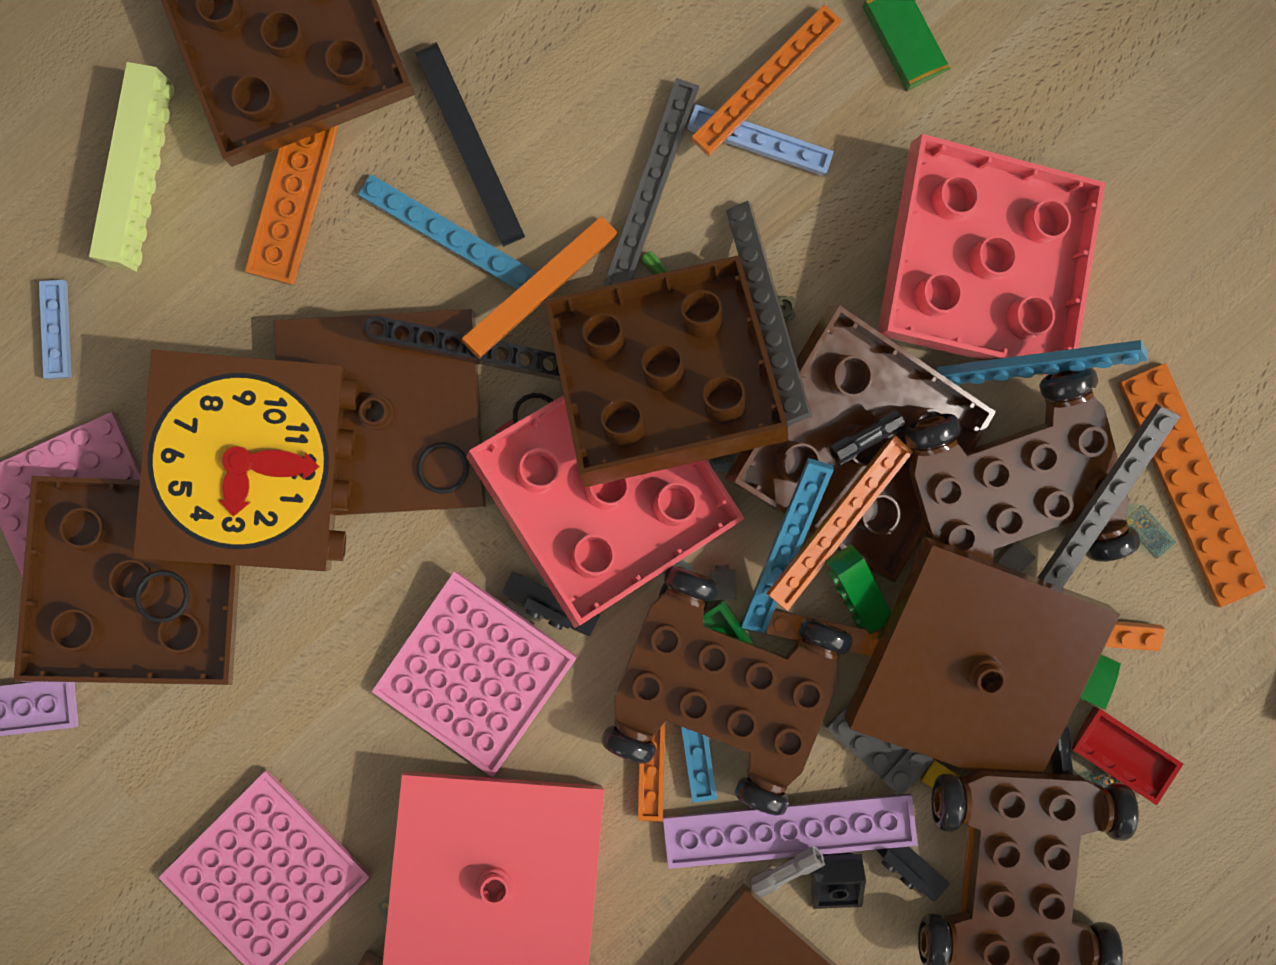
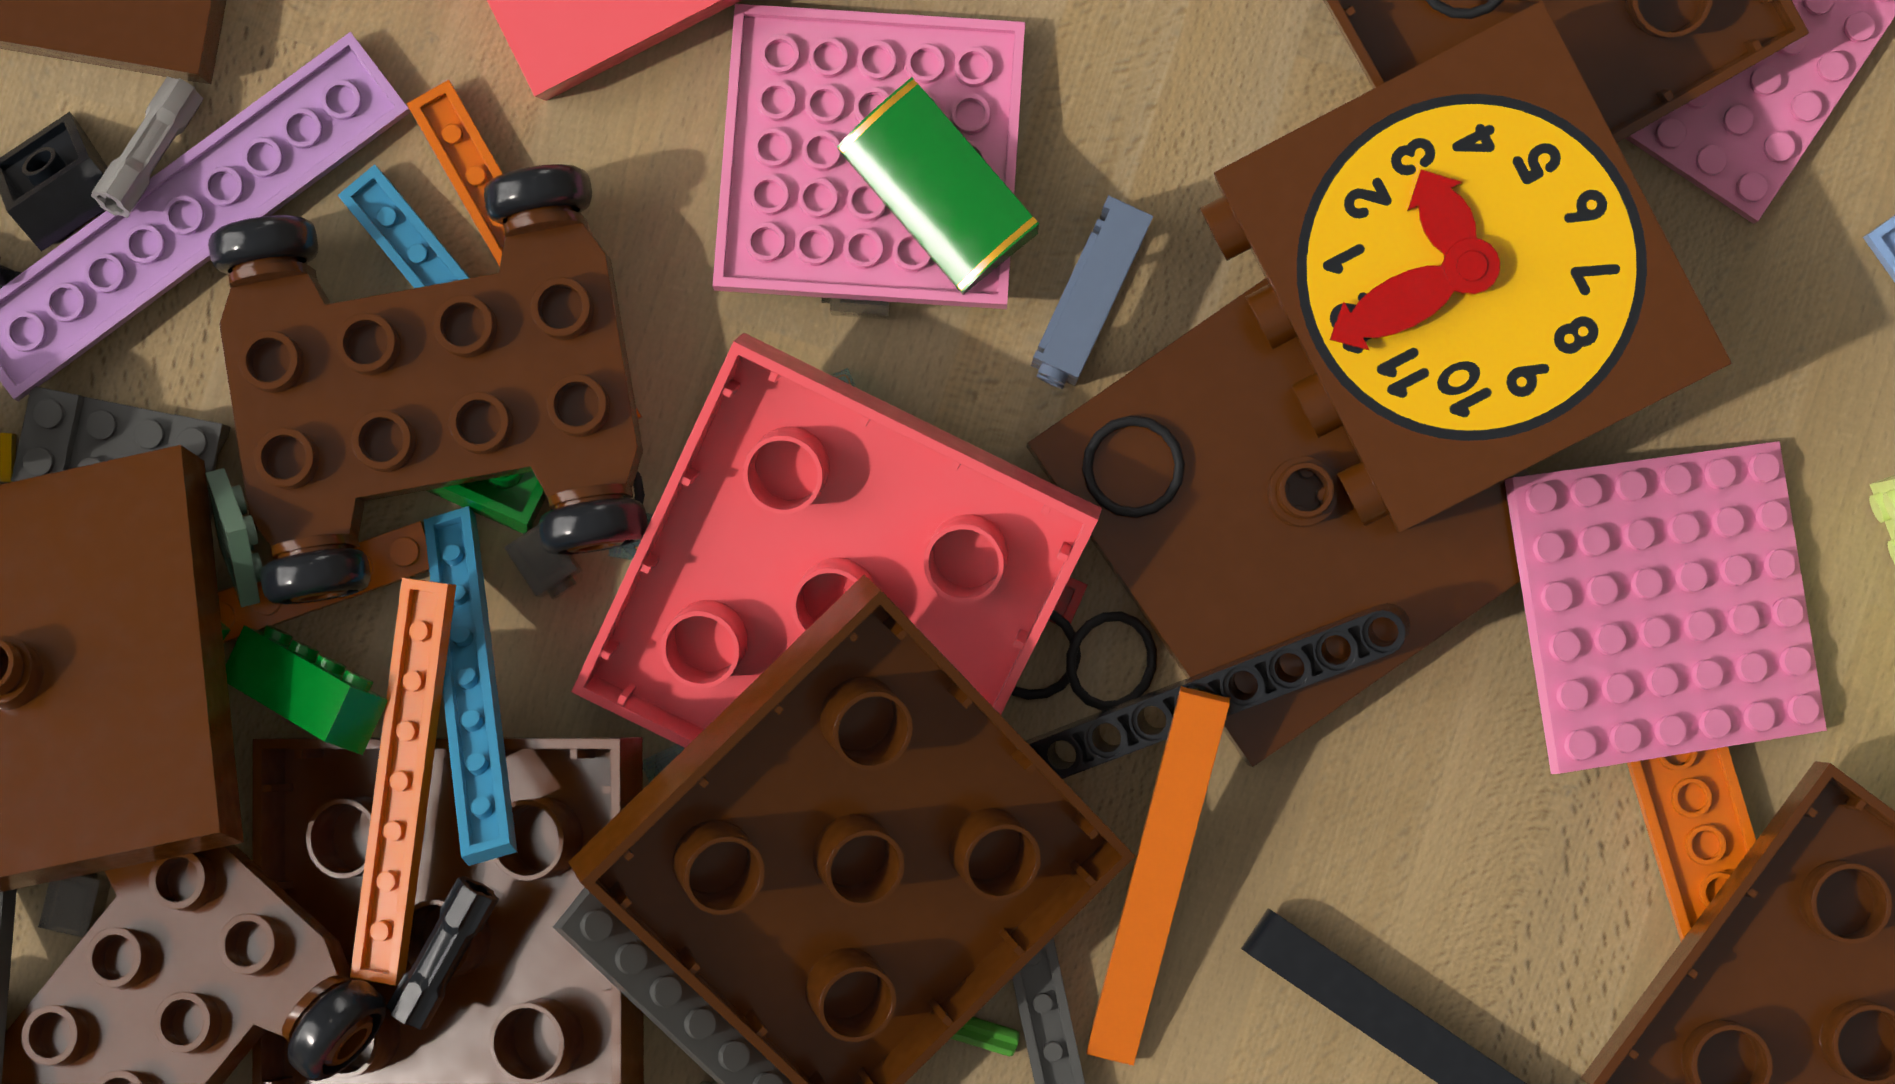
camera: 155 degrees right, 0 degrees up
(254, 270) = (1664, 606): none -> bright pink plate
(414, 554) = (1090, 293): none -> sand blue door
(445, 232) = (1379, 872): dark azure plate -> none
(451, 641) = (938, 186): none -> green slope
(514, 408) = (1083, 632): none -> black piece
(541, 602) = (833, 341): black bracket -> none
(850, 675) = (235, 536): none -> sand green plate

